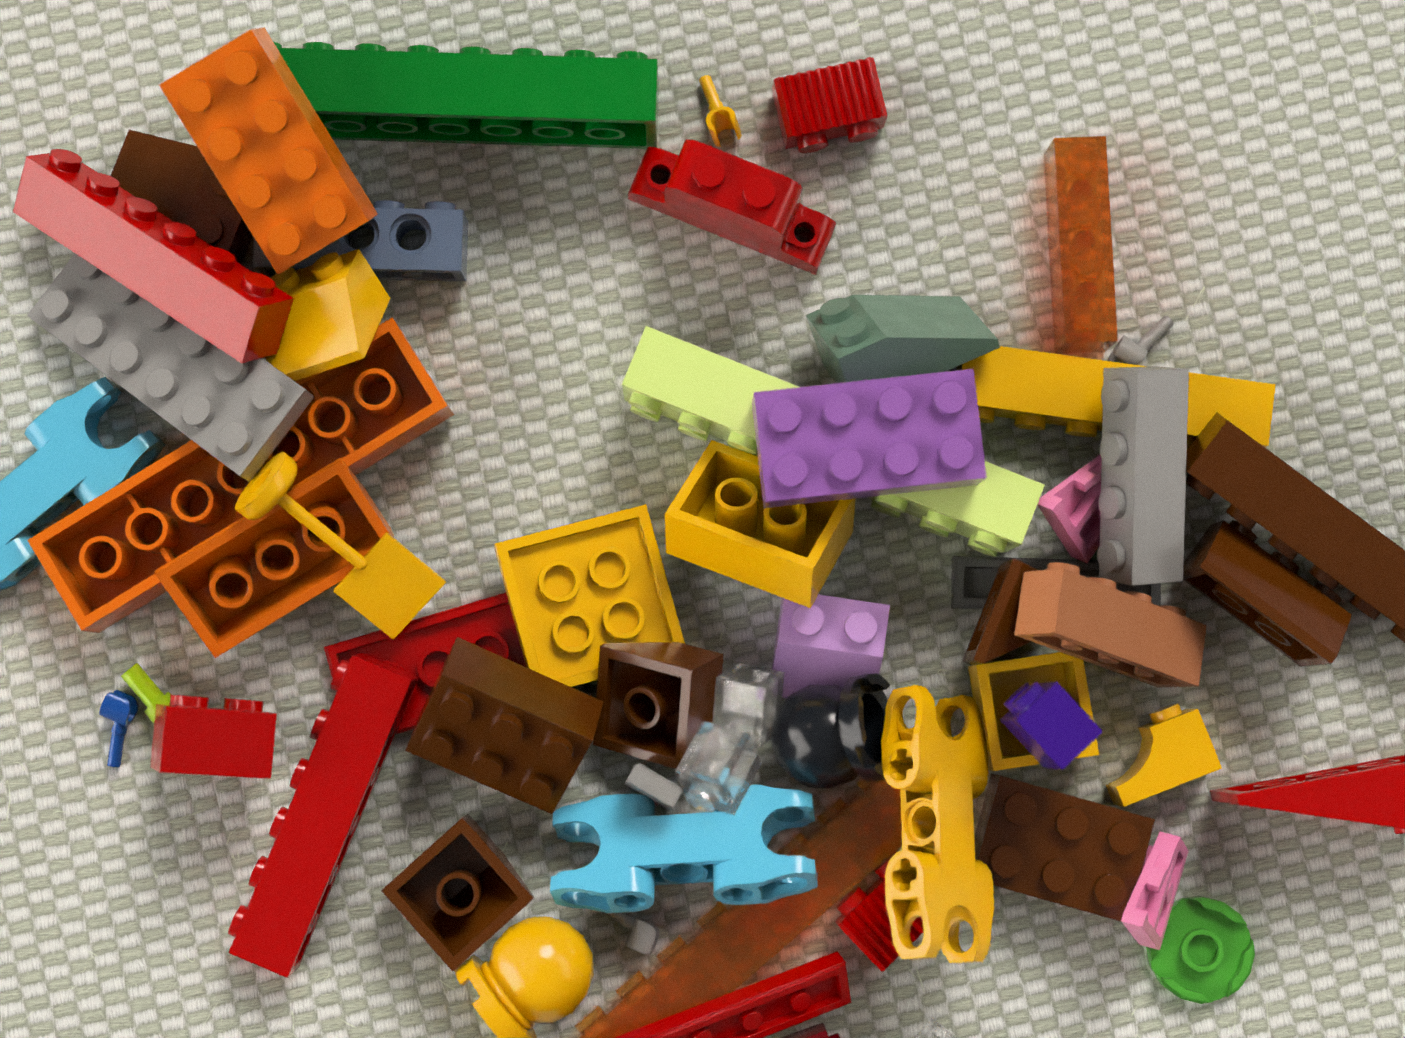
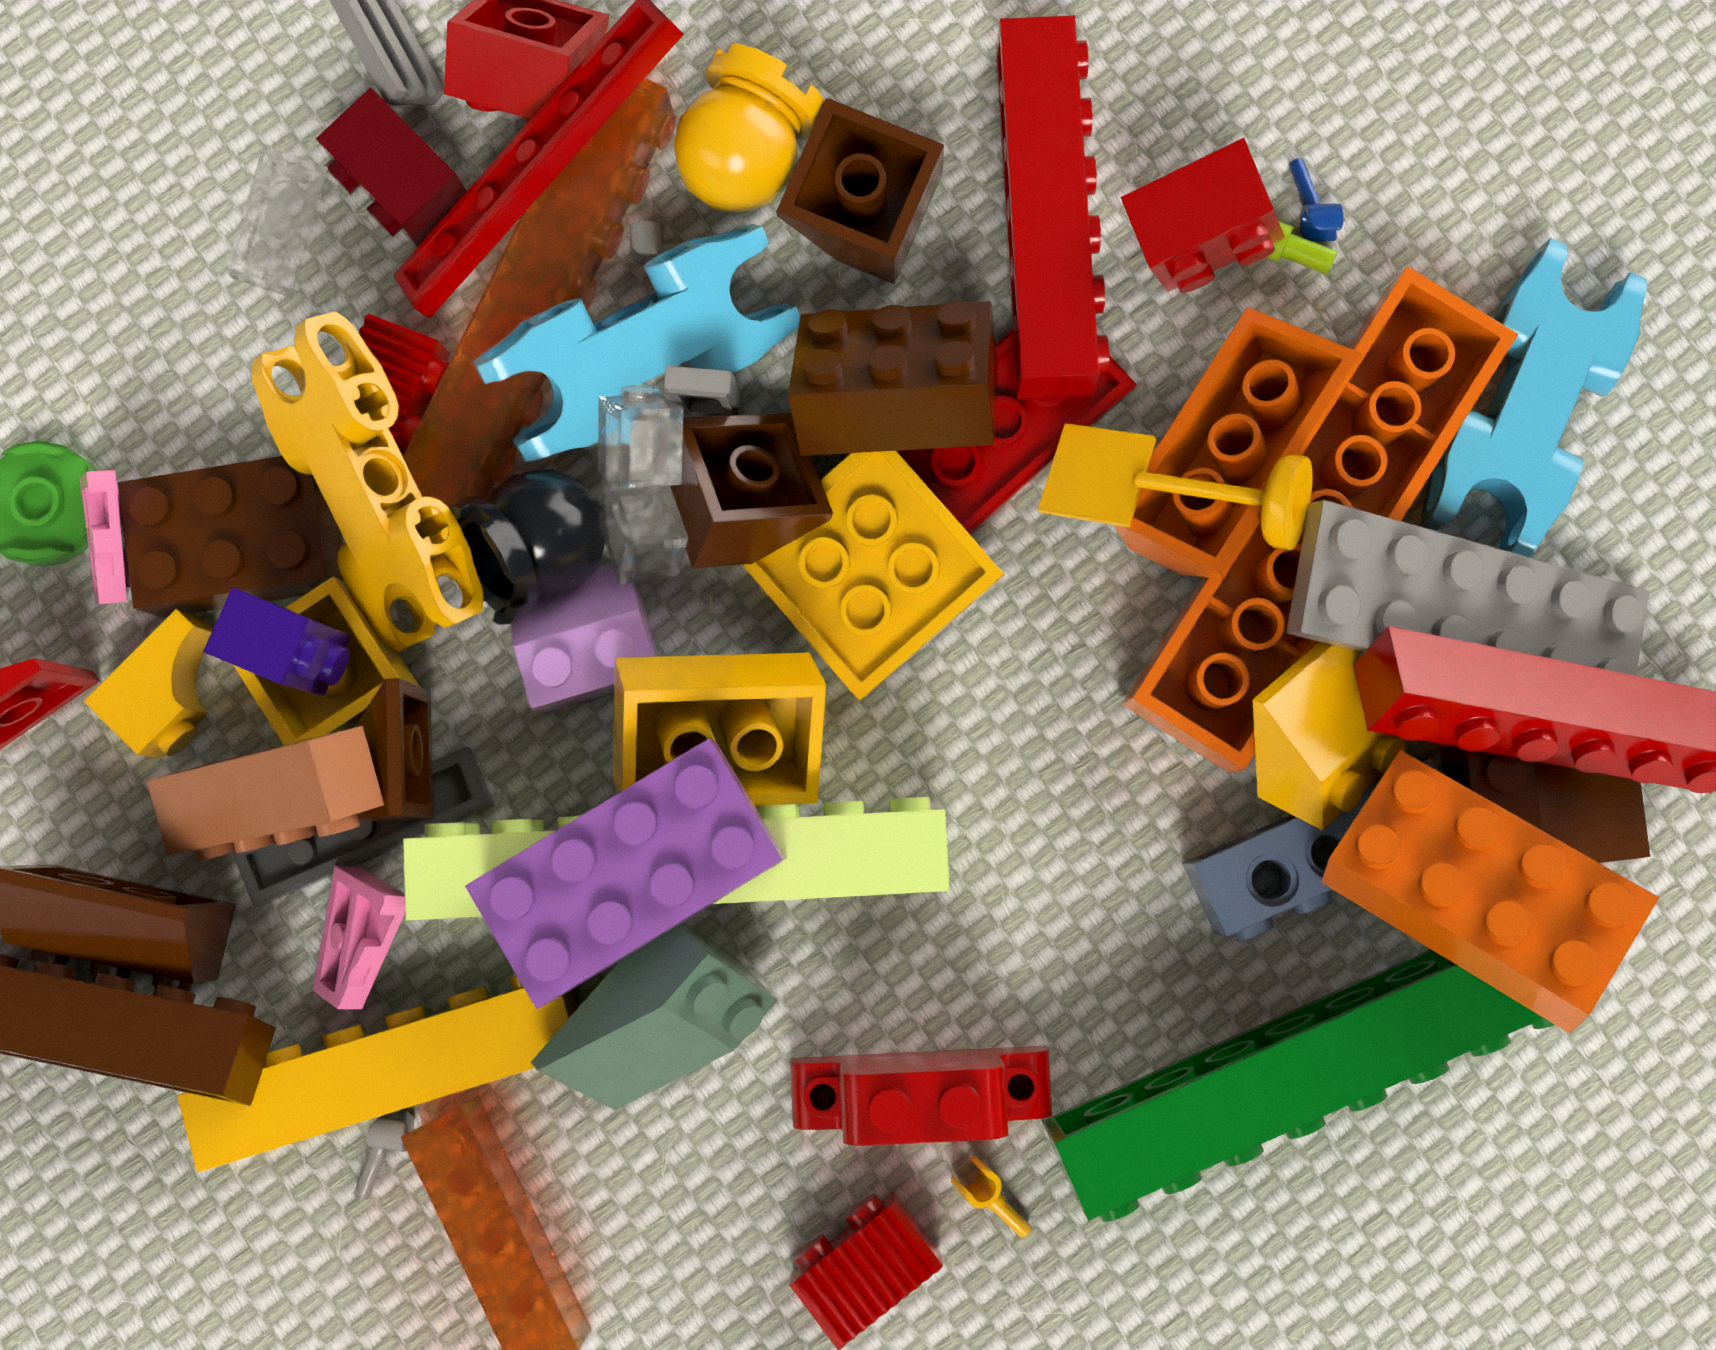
camera: 165 degrees right, 0 degrees up
(1143, 474) = (301, 991): light grey brick -> none

